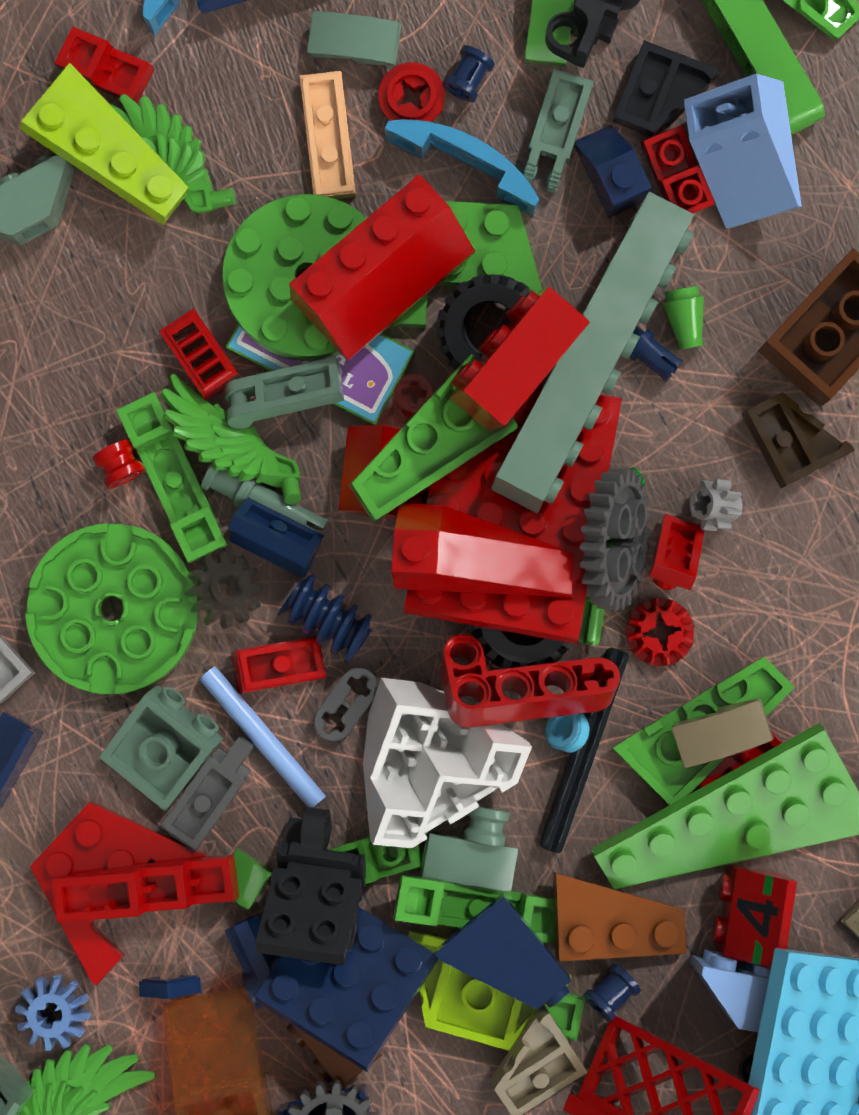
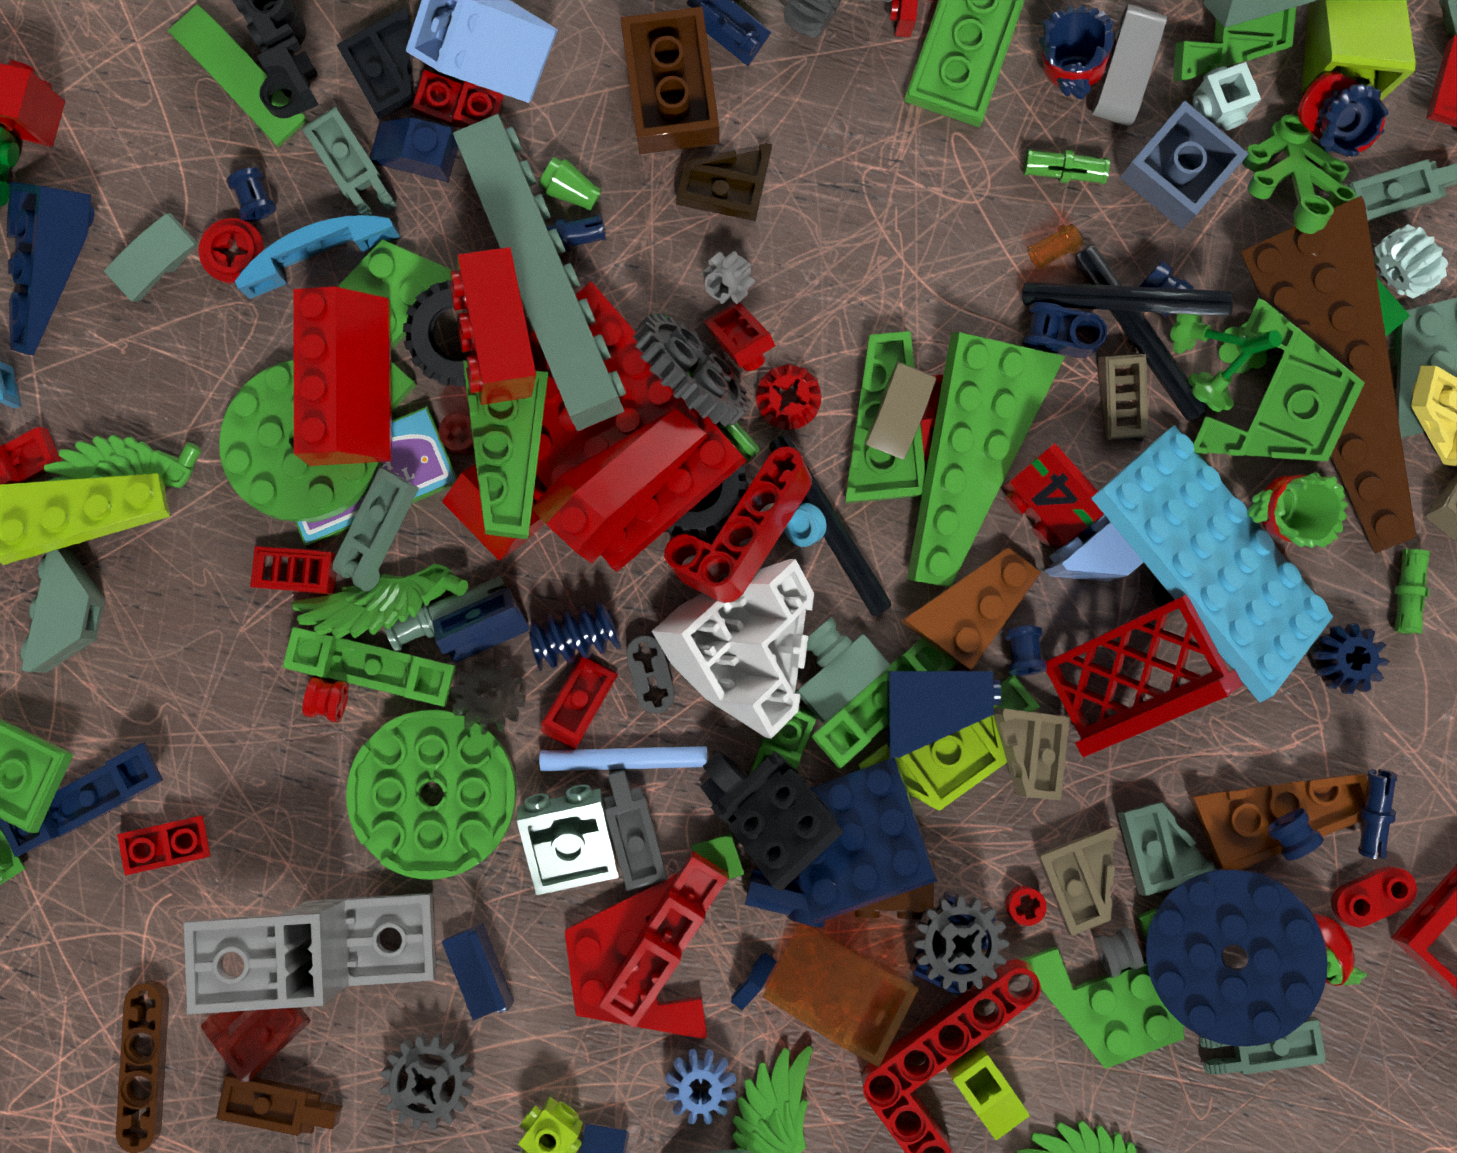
camera: 55 degrees left, 0 degrees up
(327, 135) = (208, 337): light nougat tile -> none

